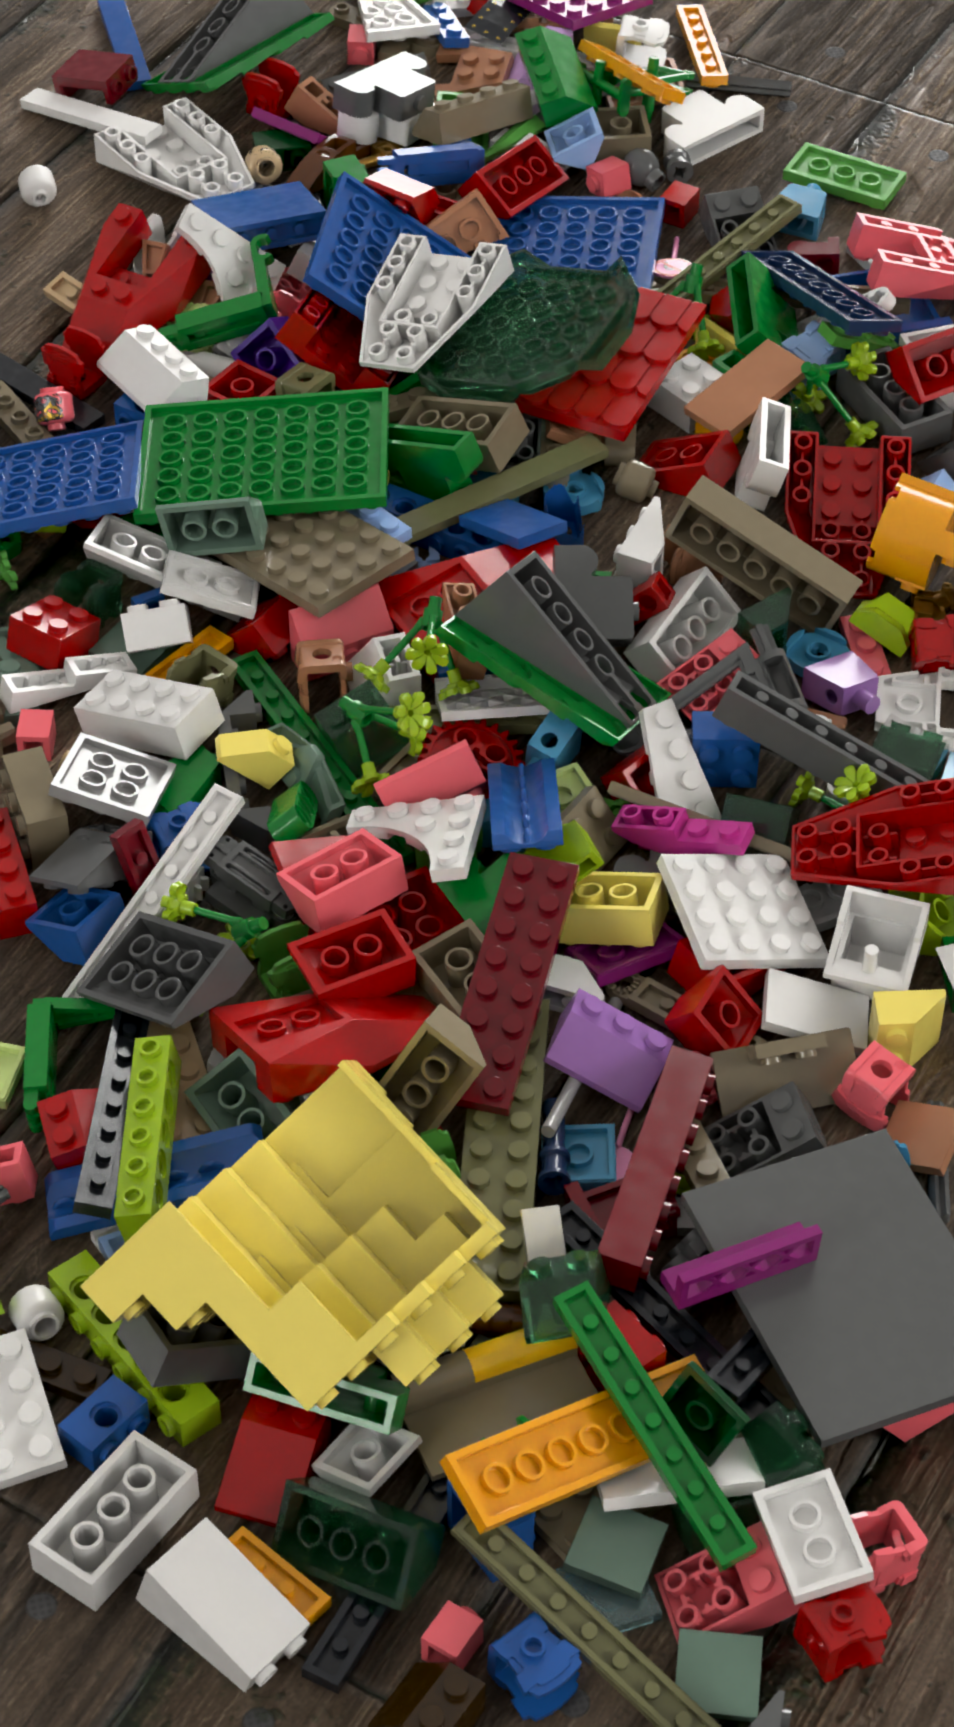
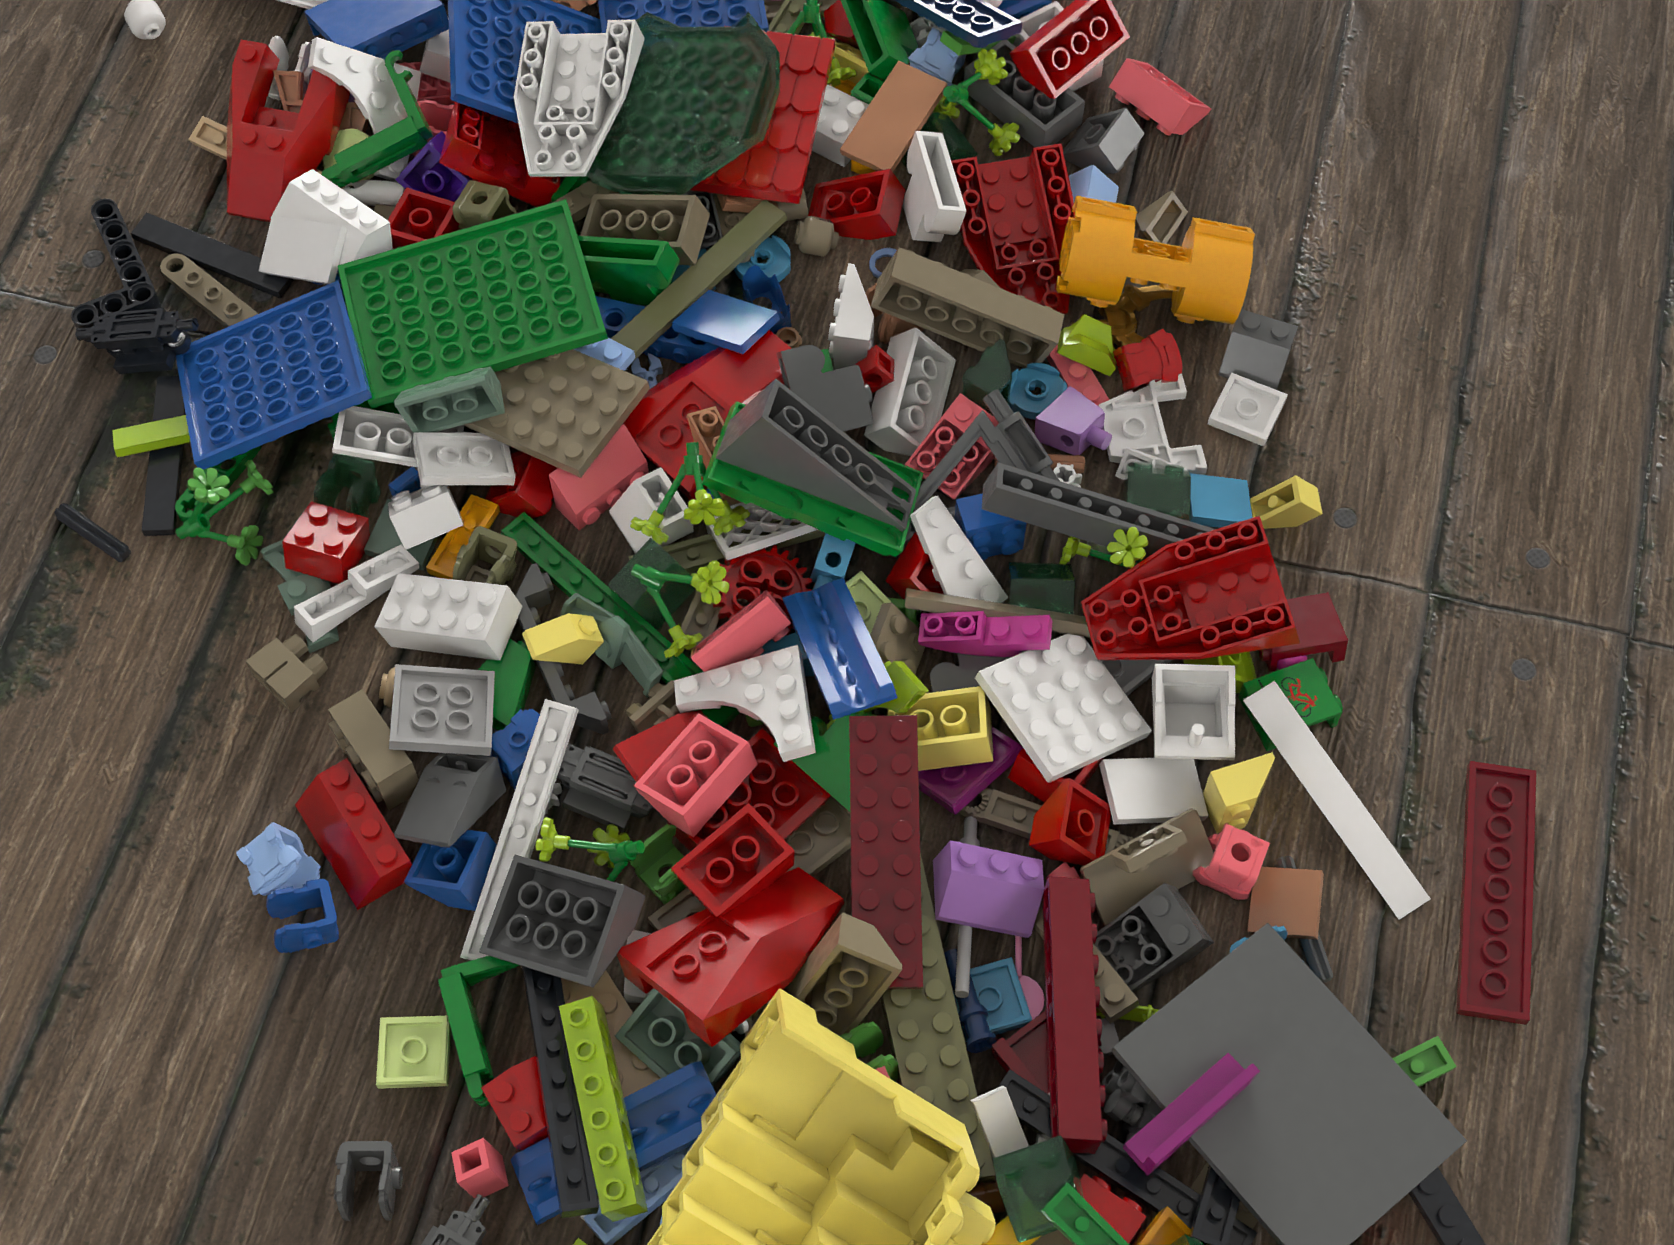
camera: 15 degrees left, 15 degrees up
(36, 729) = (344, 659): coral brick -> none
(54, 408) = (245, 279): head -> none
(69, 366) = (247, 230): red piece -> none
(118, 389) = (303, 249): none -> white tile
(134, 852) = (491, 791): dark red plate -> none
(293, 813) = (619, 696): green beam -> none
(307, 664) = (584, 530): nougat piece -> none
(448, 964) = (824, 840): dark tan slope -> none
(565, 979) = (937, 820): white slope -> none

